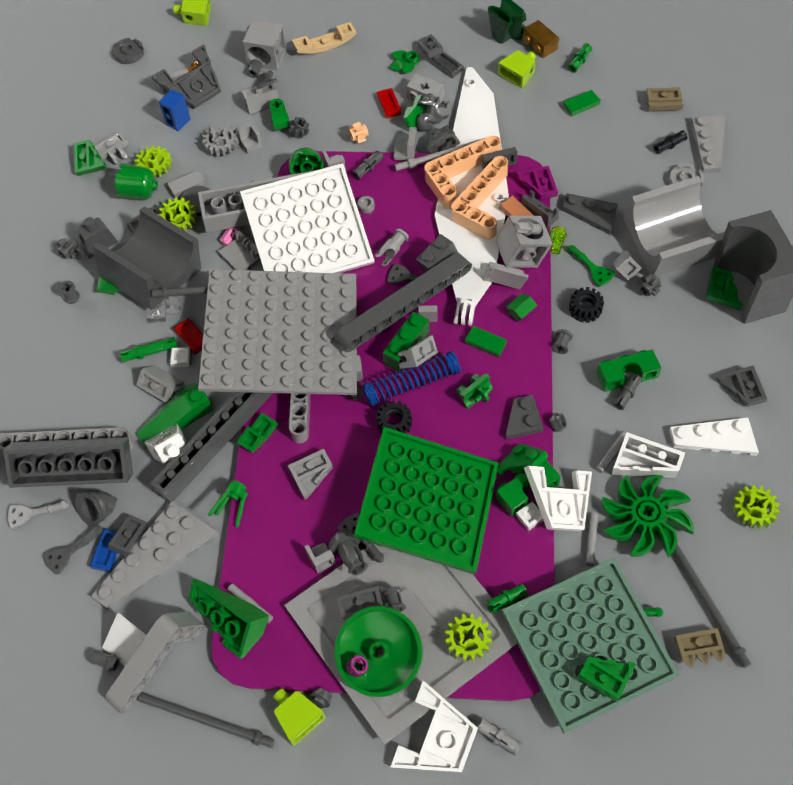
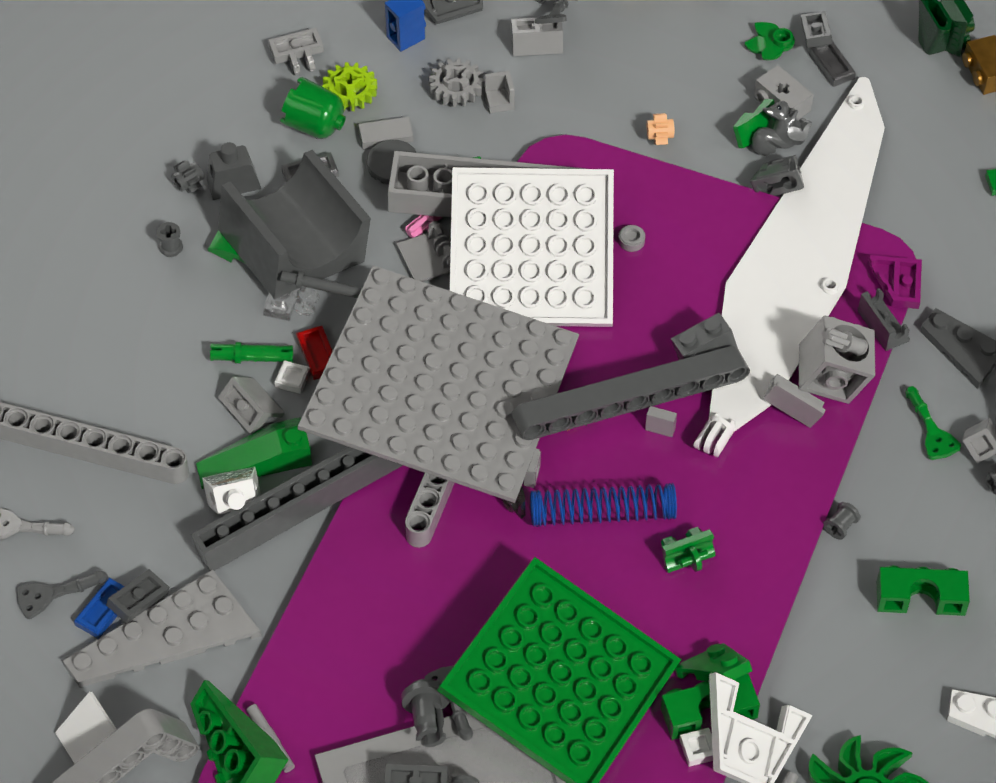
camera: 15 degrees right, 5 degrees down
(68, 462) = (92, 473): dark grey brick -> none
(87, 158) = (258, 55): green wing -> none
(94, 506) = (107, 543): dark grey piece -> none
(110, 662) = (58, 753): dark grey pin -> none
(176, 213) = (356, 173): lime gear -> none
(234, 491) = (300, 582): green plant -> none
(258, 433) = (362, 515): green slope -> none
(279, 115) = (554, 70): green piece -> none
(299, 127) = (576, 96): dark grey gear -> none
(305, 160) = (564, 149): green cylinder -> none
(310, 472) = (415, 589): light grey wing -> none
(320, 557) = (386, 708): light grey panel -> none
(332, 161) = (608, 161): light grey panel -> none
(367, 165) = (655, 181): dark grey pin -> none
(389, 103) = (723, 97): red tile -> none
(392, 246) = (647, 309): light grey piece -> none
(394, 409) = (561, 540): black tyre -> none
(405, 147) = (723, 171): light grey panel -> none
(406, 275) = (637, 352): dark grey piece -> none
(411, 162) = (721, 196): light grey bar -> none
(411, 331) = (597, 461): green arch -> none
(419, 352) = (625, 471): light grey hinge -> none
(452, 164) = (785, 216): light nougat beam -> none
(465, 207) = (773, 284): light nougat beam -> none
(486, 341) = (730, 486): green tile -> none
(510, 154) = (851, 228): dark grey plate -> none
(514, 207) = (846, 308): nougat tile -> none
(517, 67) = (937, 99): lime torso -> none
(521, 307) = (799, 452): green piece -> none
(524, 418) = (742, 610): dark grey wing -> none
(557, 236) = (894, 371): clear neon green cone -> none
(558, 422) = (791, 631): dark grey plate -> none
(586, 313) = (904, 466): black tyre -> none
(611, 452) = (854, 697): light grey piece -> none
(627, 391) = (909, 620): dark grey pin -> none
(647, 458) = (896, 721): white wedge -> none

